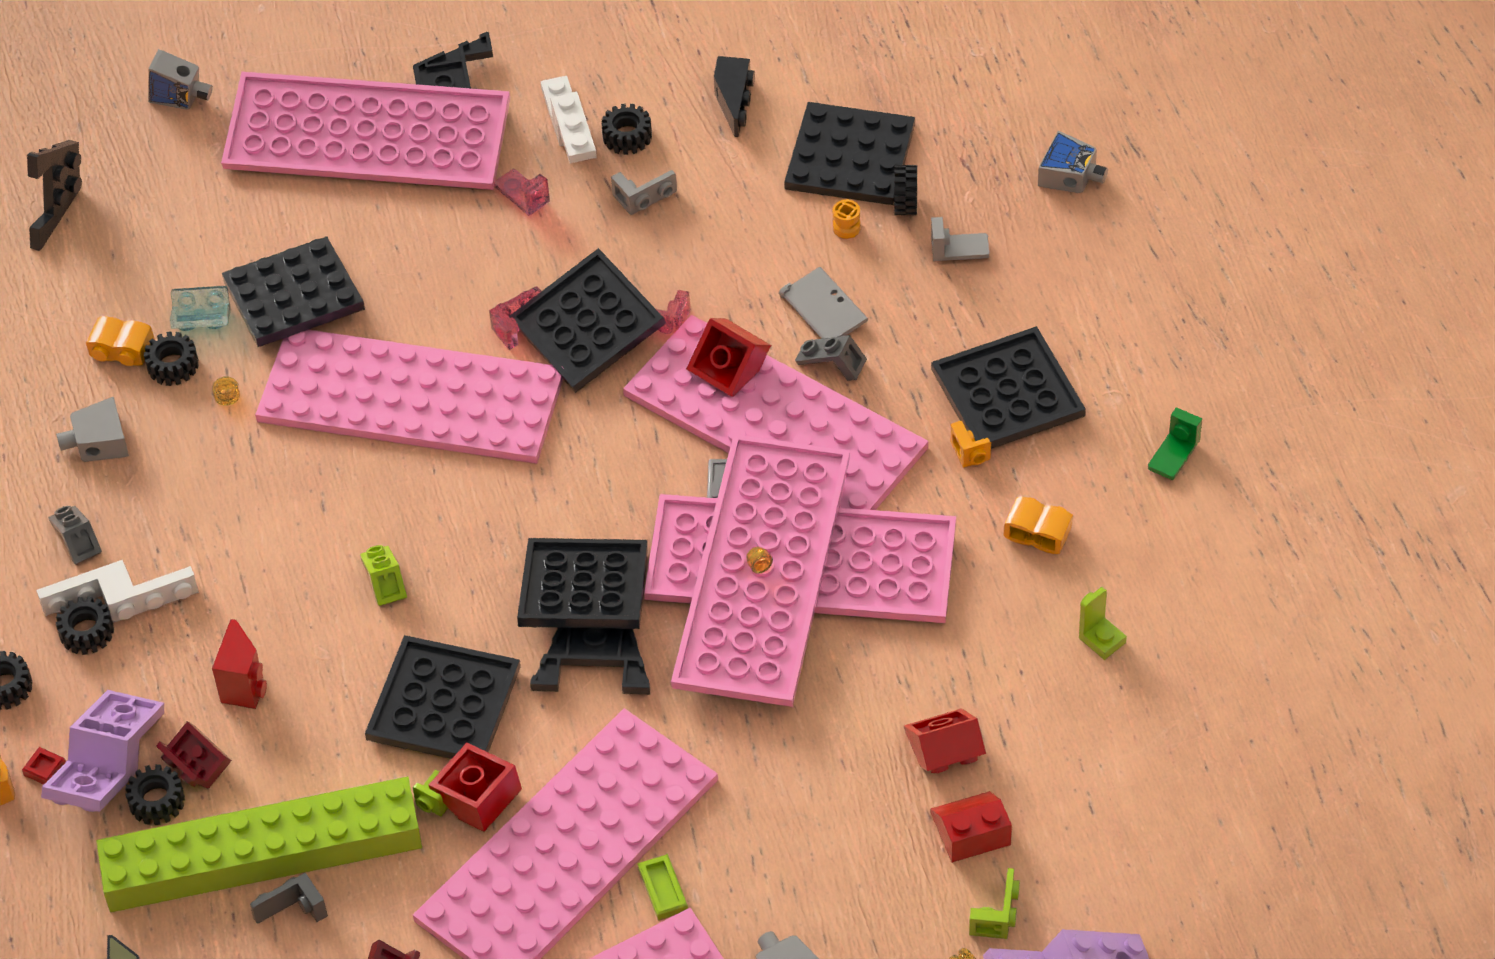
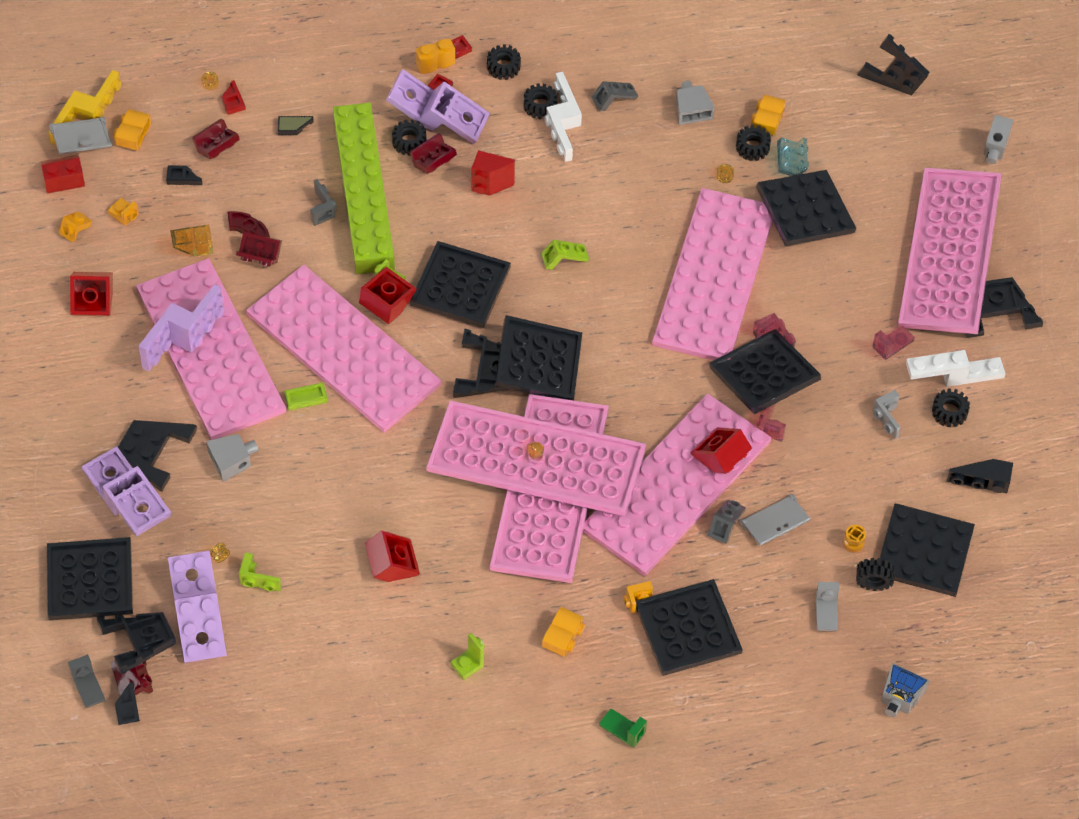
camera: 90 degrees right, 5 degrees up
(973, 826) = (325, 566): red slope -> none

